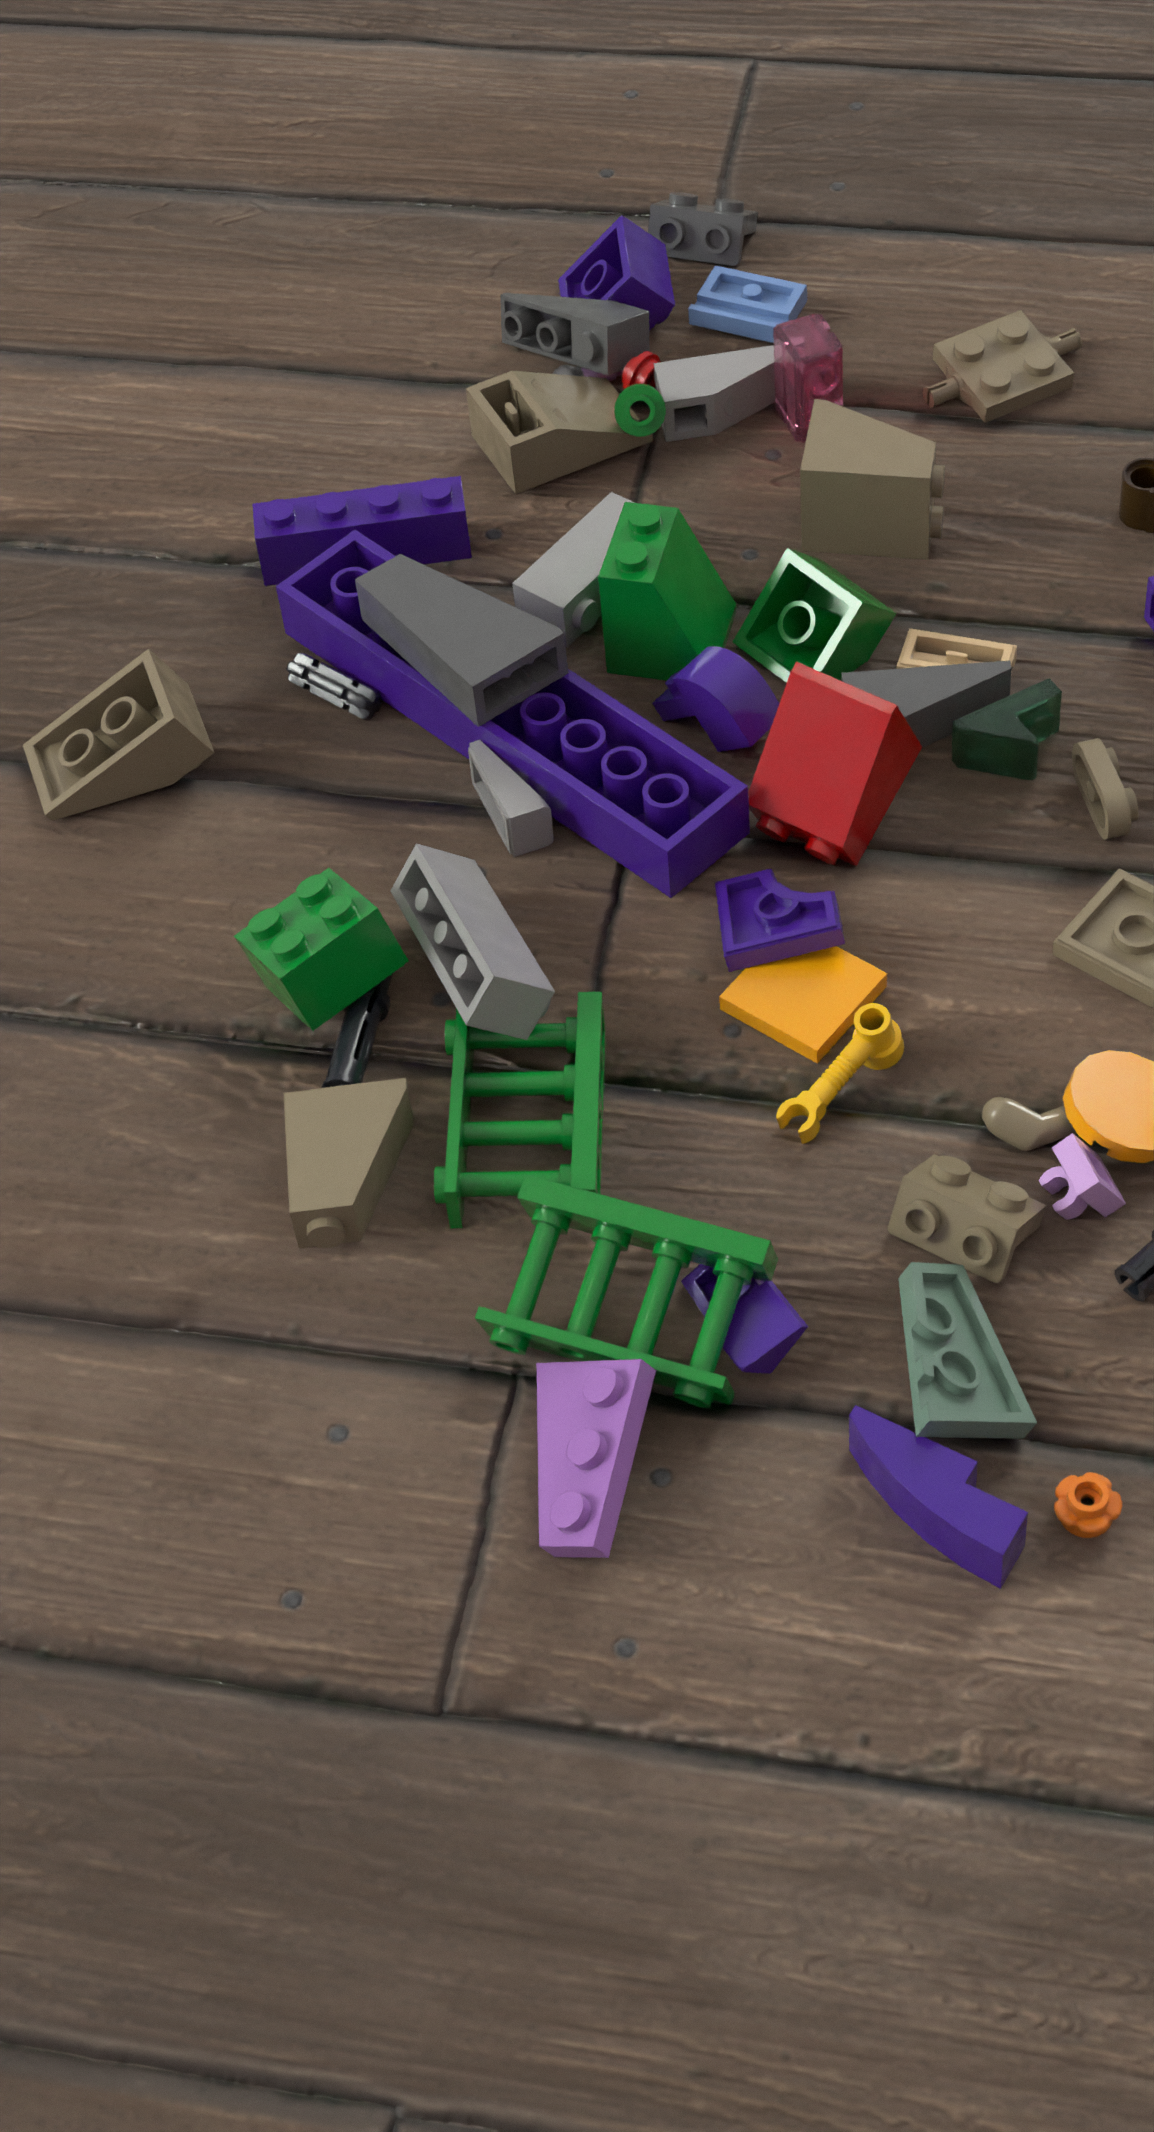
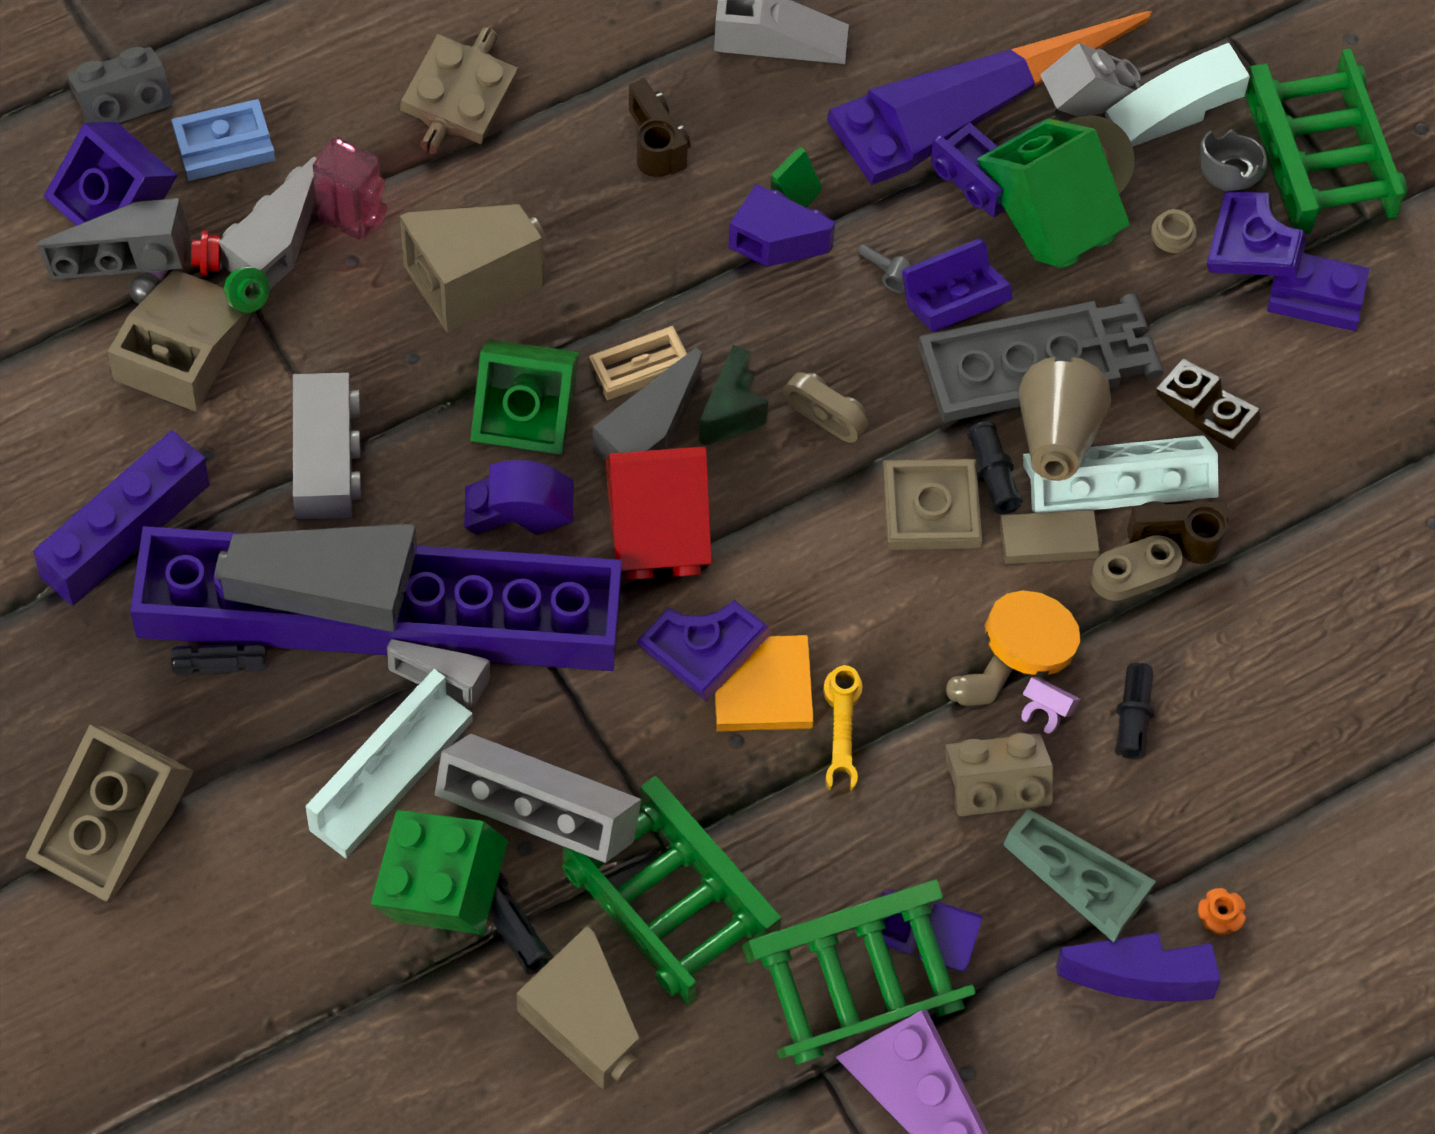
camera: 50 degrees left, 10 degrees up
(380, 852) = (387, 765): none -> light aqua fence
(659, 595) = (413, 446): green slope -> none

